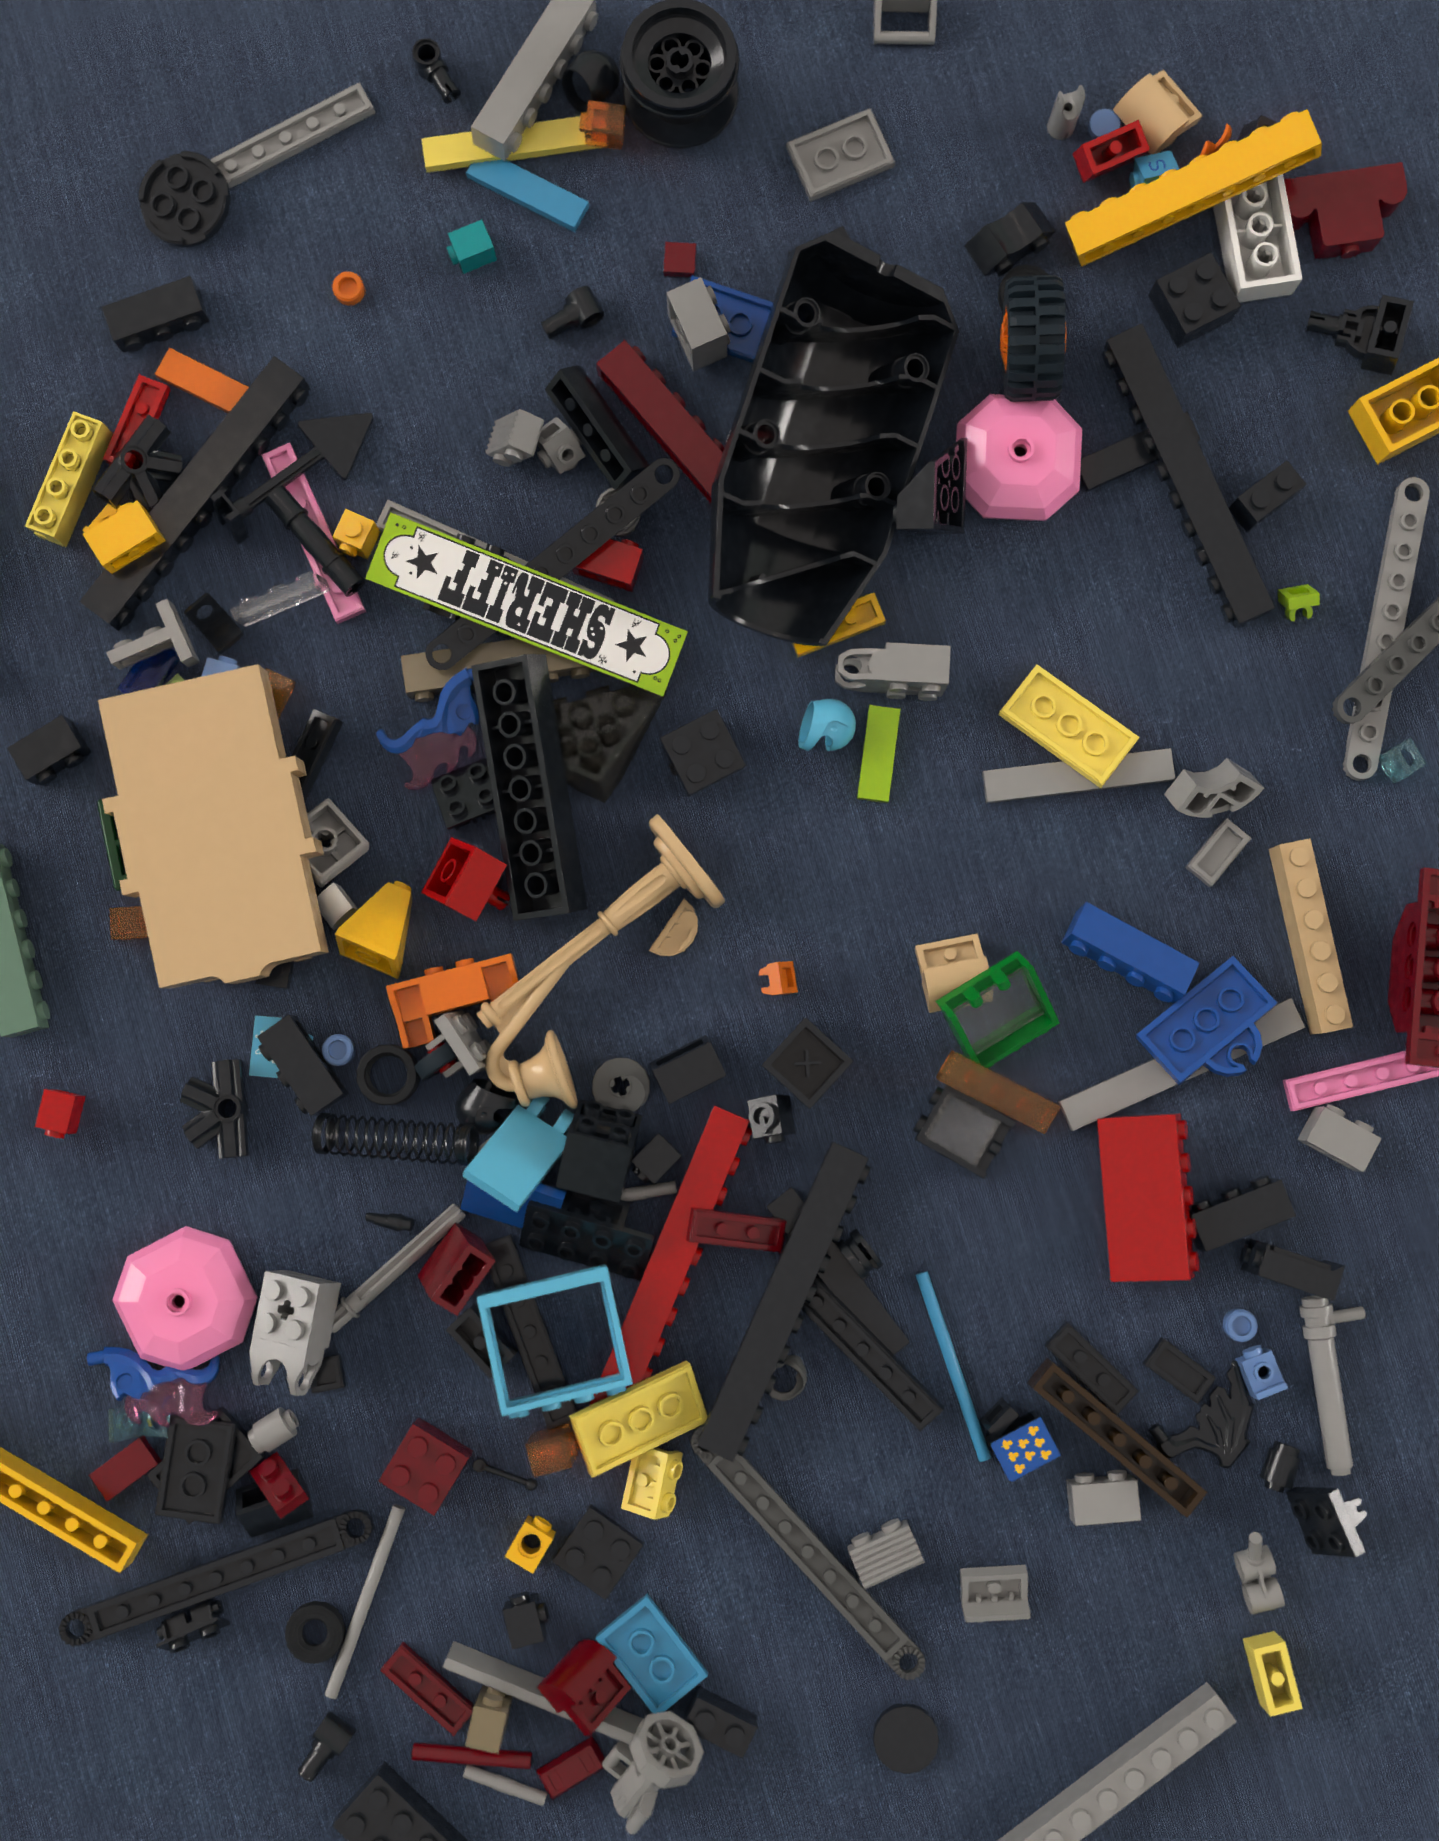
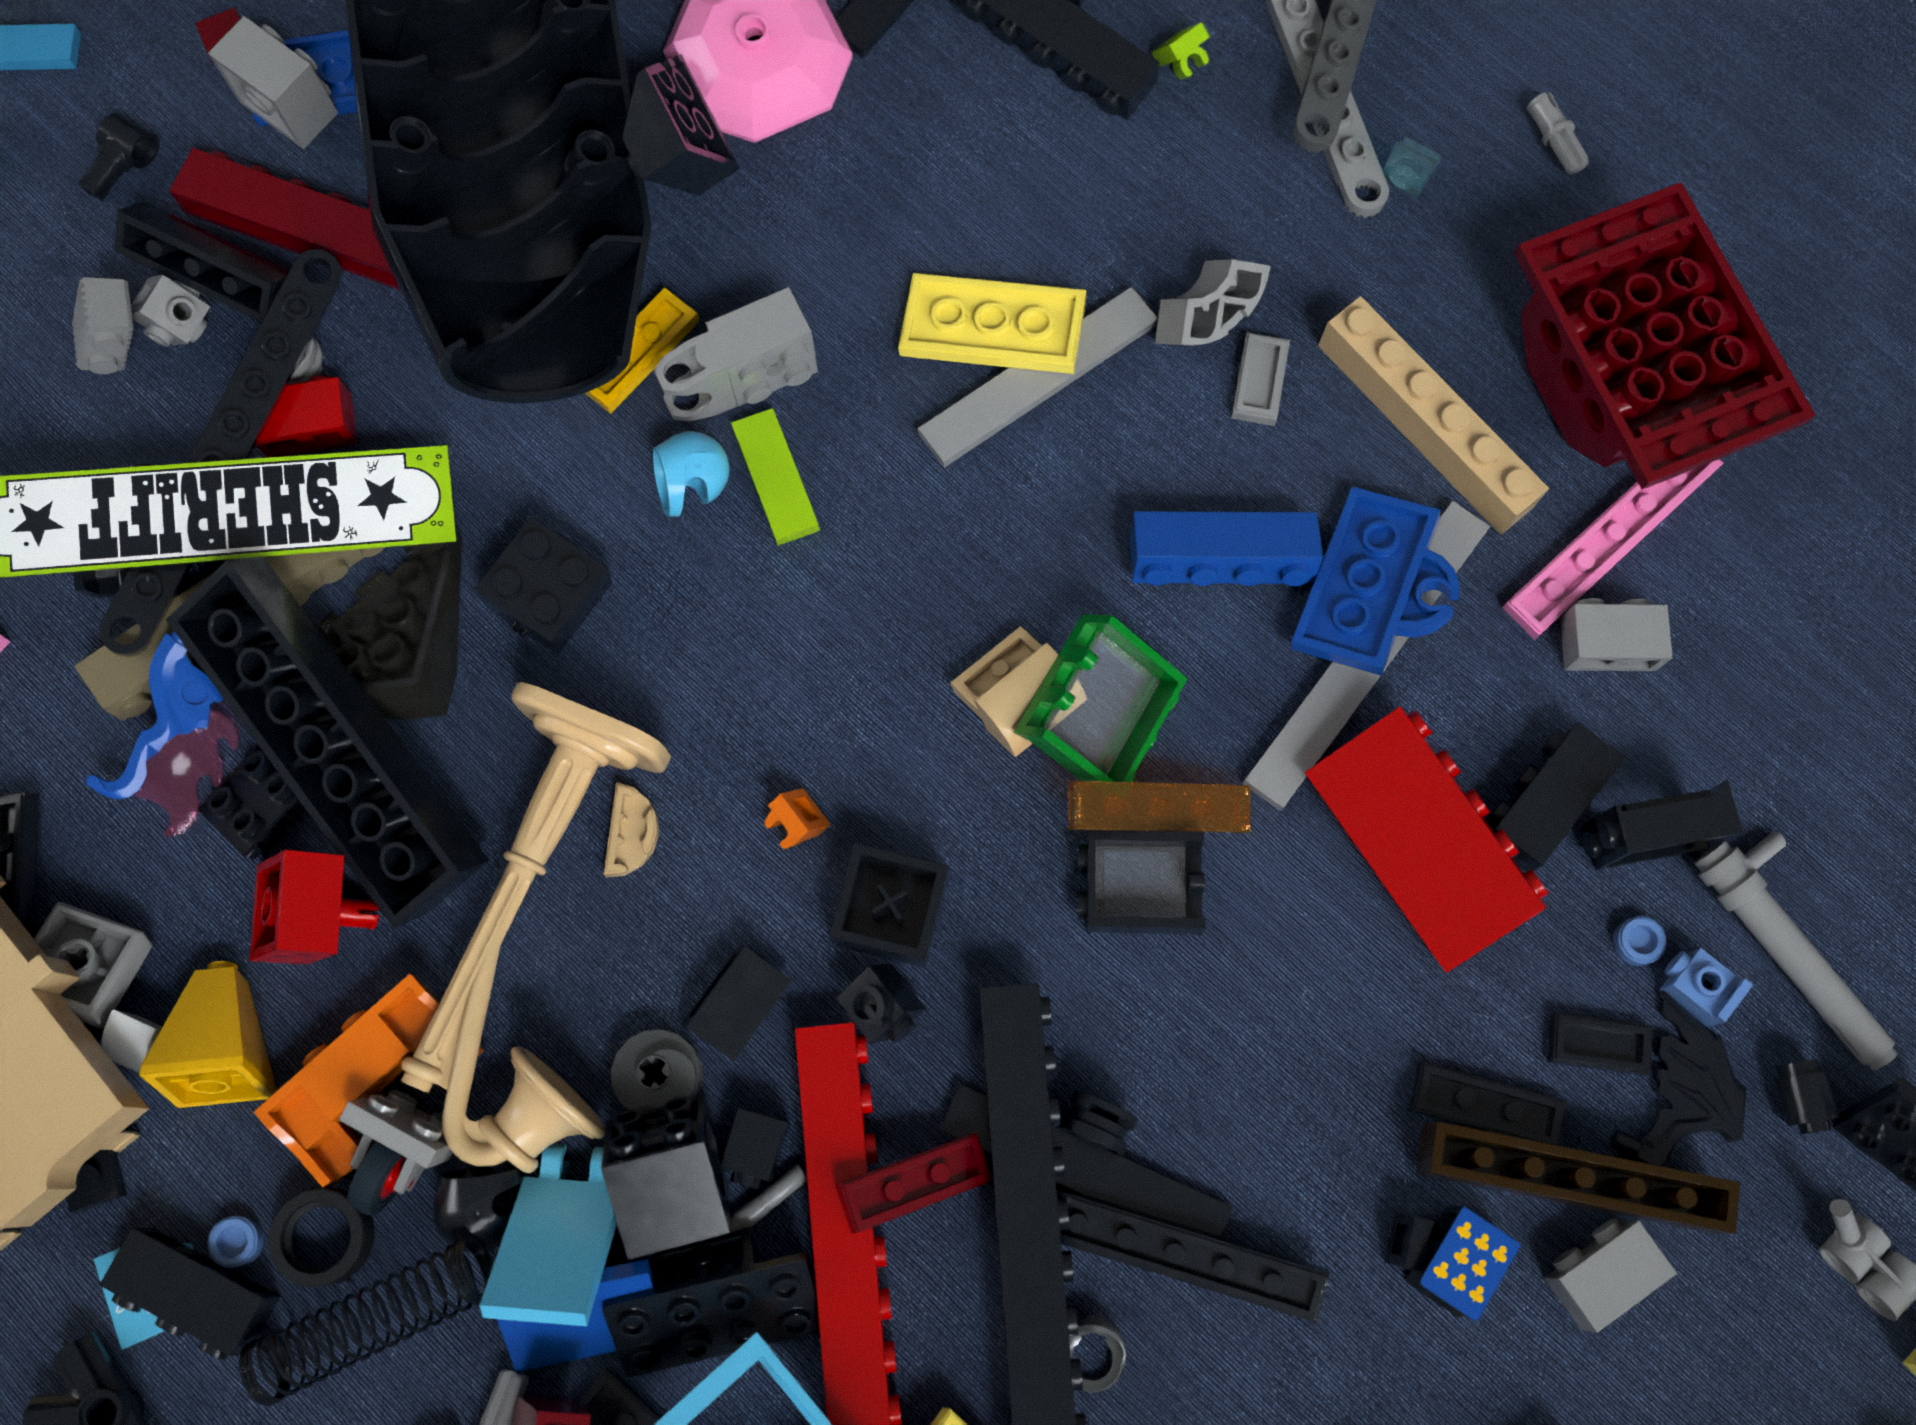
camera: 30 degrees left, 10 degrees down
(953, 1366) = (1309, 1208): dark azure piece -> none

